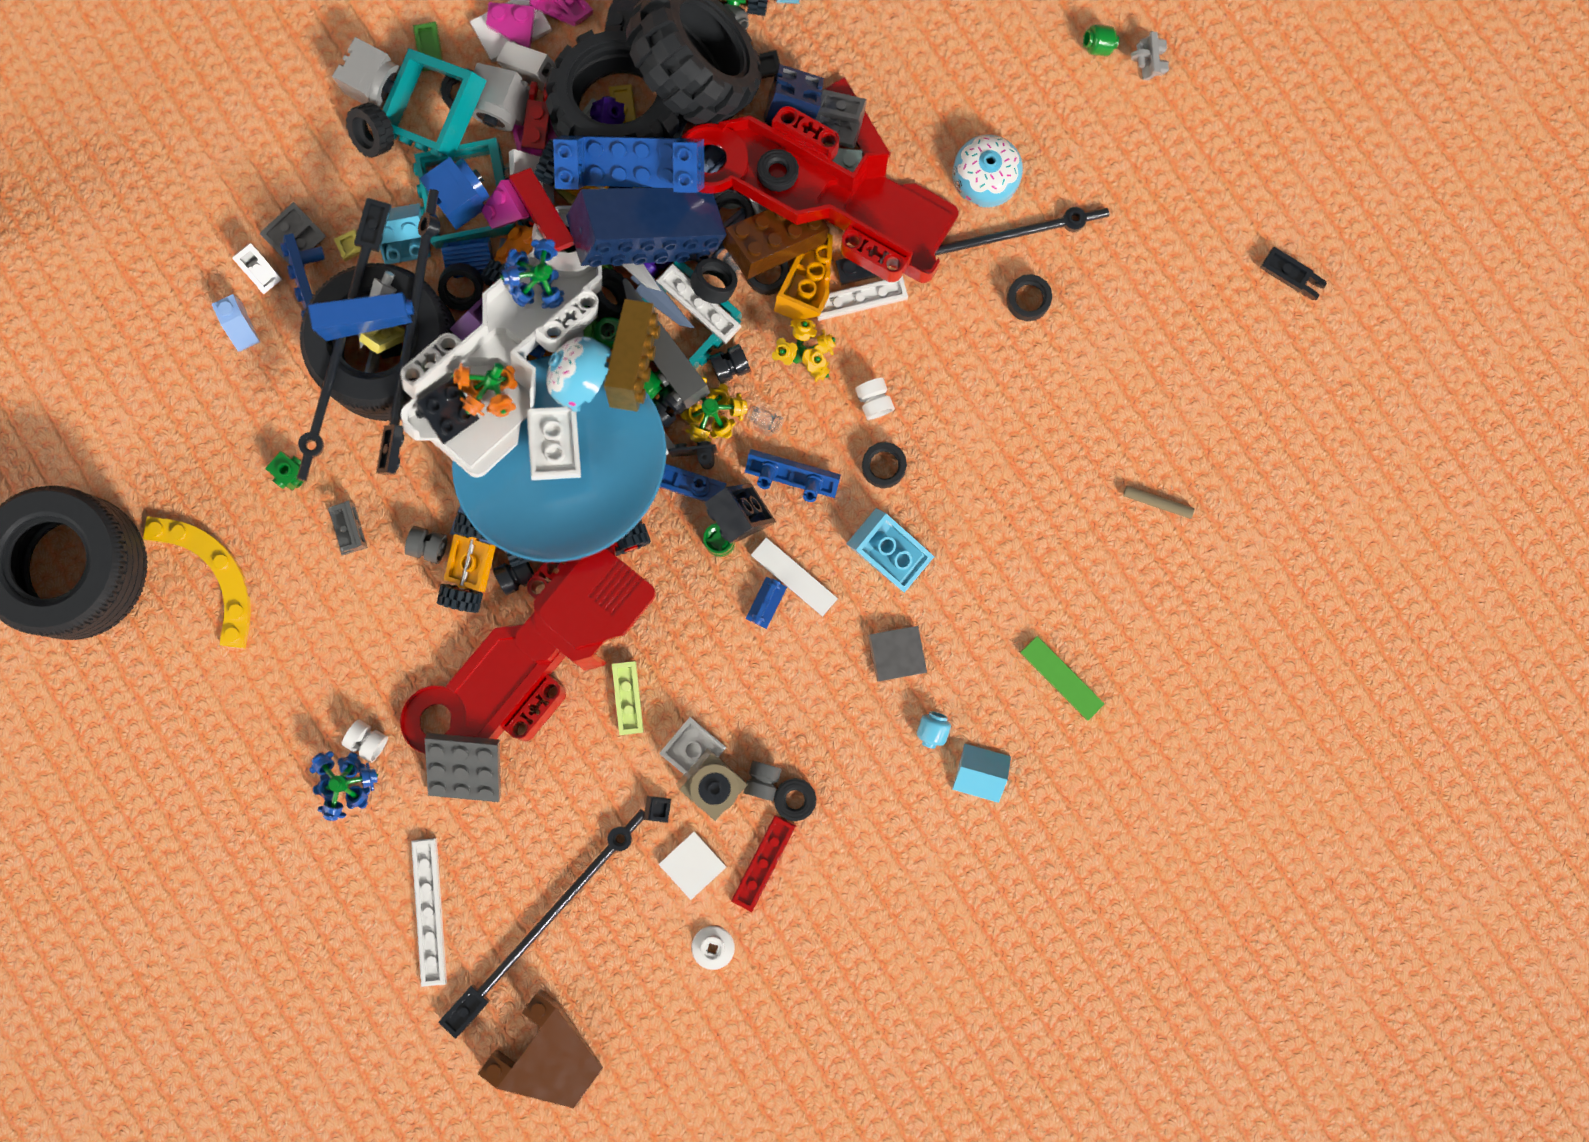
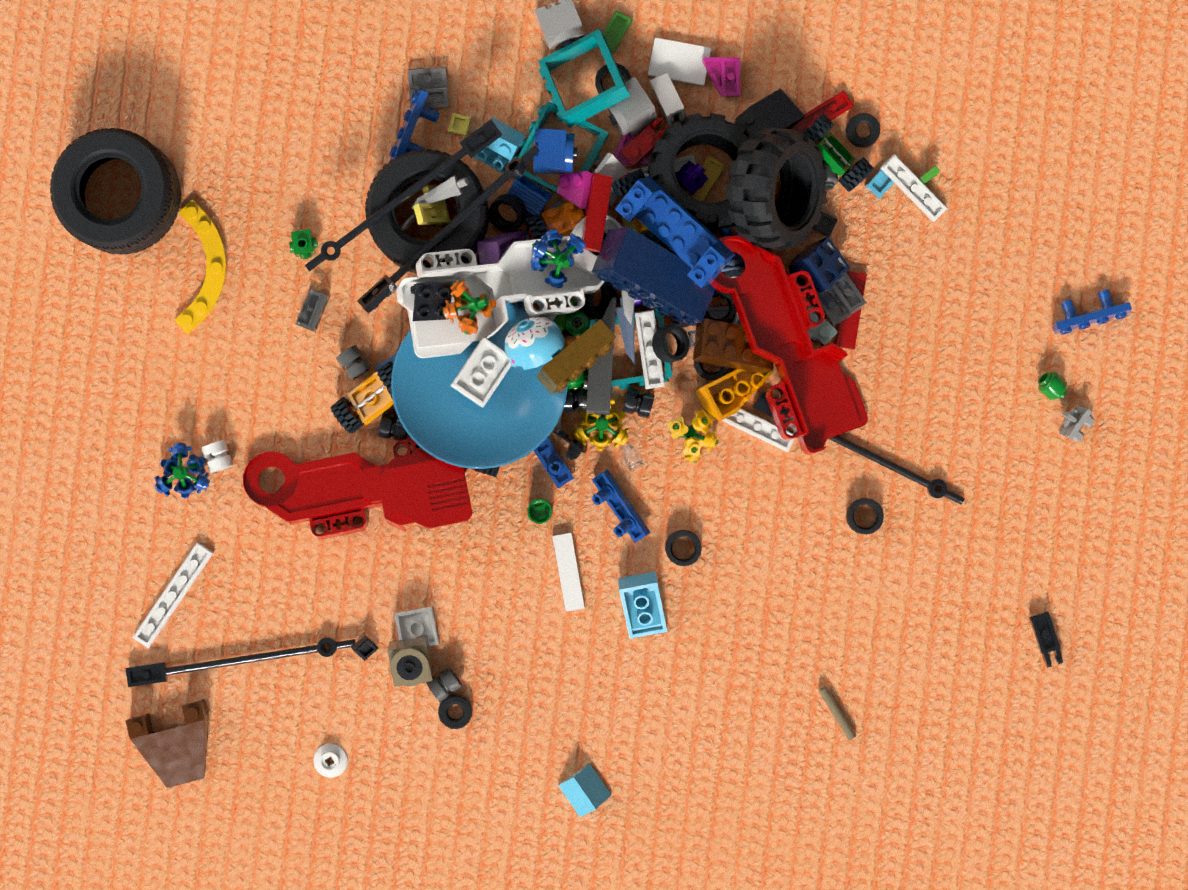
camera: 35 degrees right, 5 degrees up
(236, 322) = (346, 118): light blue slope -> none
(257, 268) = (388, 94): white slope -> none
(360, 315) = (426, 196): blue slope -> none
(379, 124) = (540, 63): black tyre -> none
(463, 767) = (265, 524): dark grey plate -> none
(512, 21) = (681, 62): dark pink wing -> none
(627, 698) = (402, 563): yellowish green plate -> none
(692, 865) = (358, 700): white tile -> none
(739, 512) = (566, 506): black slope -> none
(763, 863) = (403, 734): red tile -> none
(766, 602) = (537, 574): blue hinge -> none
(774, 183) = (760, 315): black tyre -> none
(876, 402) = (712, 501): white wheel -> none
(897, 653) = (593, 673): flat silver slope -> none
(933, 729) = (576, 739): medium azure head -> none
(987, 170) = (895, 416): cylinder -> none
(1062, 678) = (683, 773): bright green tile -> none

